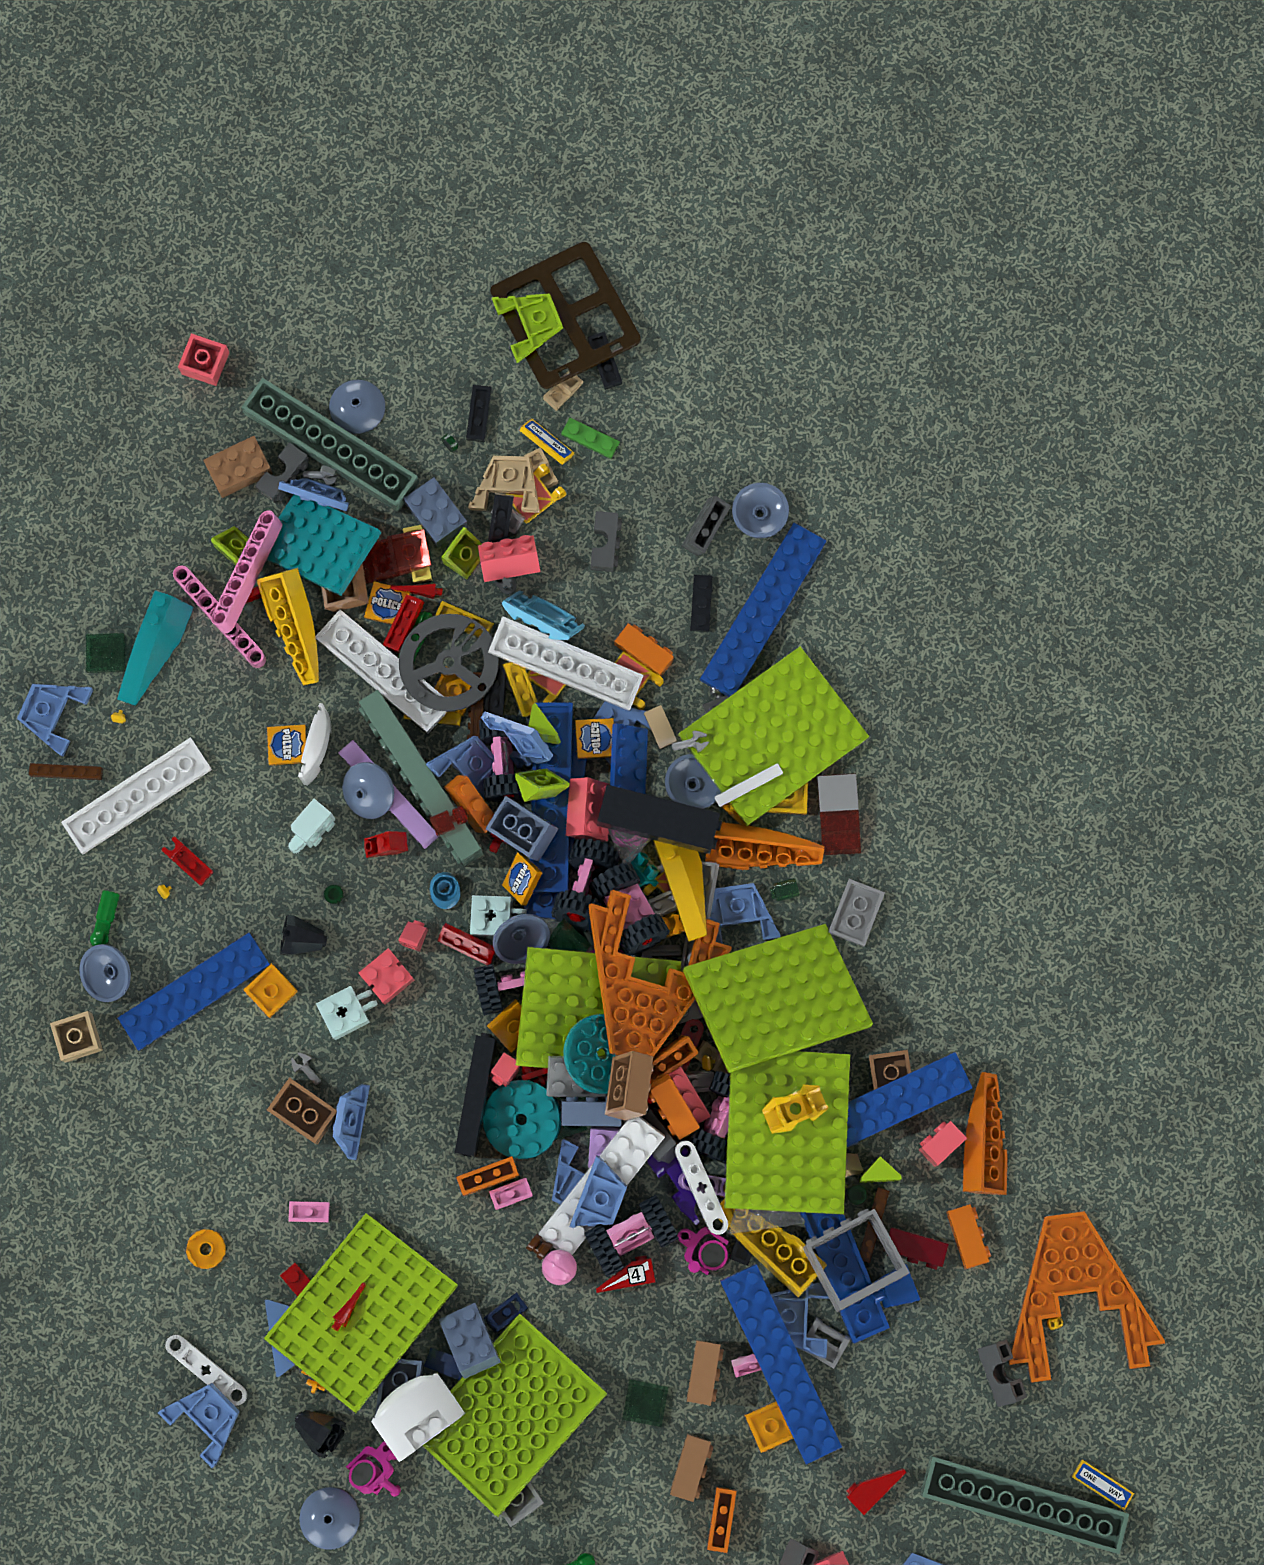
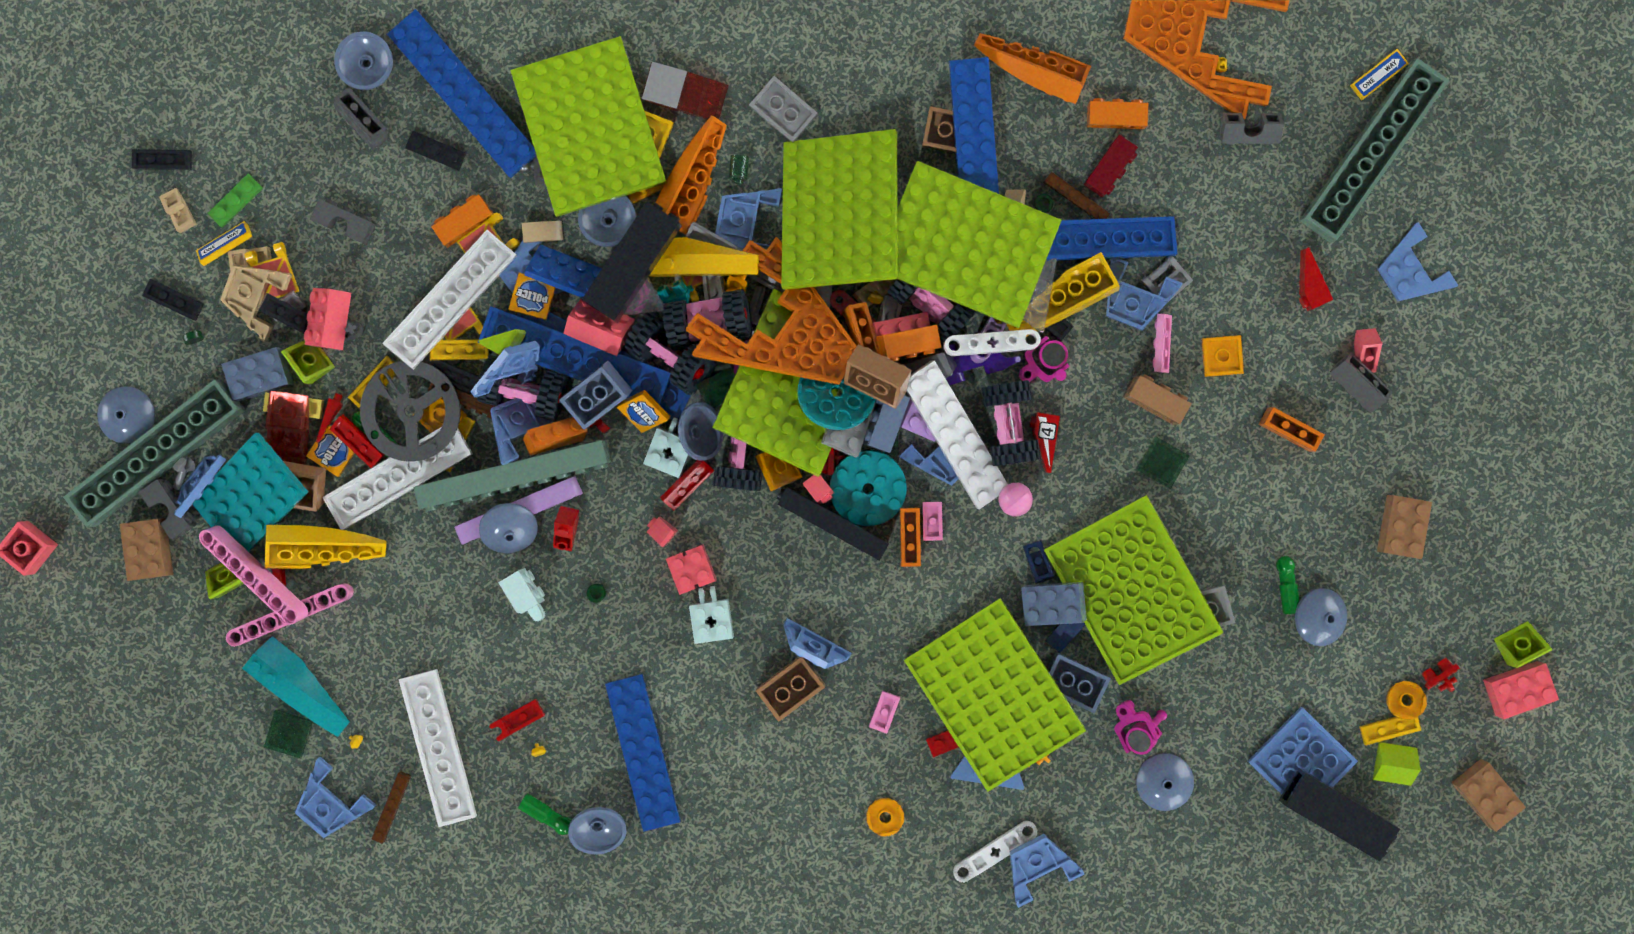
camera: 65 degrees left, 10 degrees up
(76, 1036) = (648, 875): tan brick -> none
(270, 990) = (666, 681): light orange tile -> none
(286, 744) = (437, 590): tile -> none
(301, 937) = (626, 637): black cone -> none
(305, 1068) = (751, 671): light grey bar -> none
(315, 745) = (447, 564): white slope -> none
(319, 1431) = (1086, 767): black cone -> none
(342, 1316) = (992, 711): red piece -> none
(416, 1414) = (1104, 674): white slope -> none
(444, 822) = (564, 467): clear red plate -> none
(446, 899) = (637, 485): dark azure hat -> none
(537, 317) = (95, 209): lime wing -> none
(540, 784) = (559, 363): lime slope -> none
(543, 615) = (394, 305): medium azure slope -> none
(543, 1249) = (993, 508): reddish brown wheel -> none
(569, 312) = (101, 181): dark brown window -> none
(600, 1196) = (967, 439): medium blue wing -> none
(691, 742) = (568, 205): light grey bar -> none
(691, 1468) = (1237, 441): medium nougat brick -> none
(748, 785) = (628, 166): white sticker -> none
(778, 1111) = (954, 245): yellow piece -> none
(781, 1364) = (1173, 326): blue plate -> none
(846, 1225) = (1100, 189): light grey window -> none
(880, 1172) = (1031, 174): lime slope -> none
(898, 1293) = (1141, 198): blue torso -> none
(942, 1144) = (1026, 106): coral brick -> none

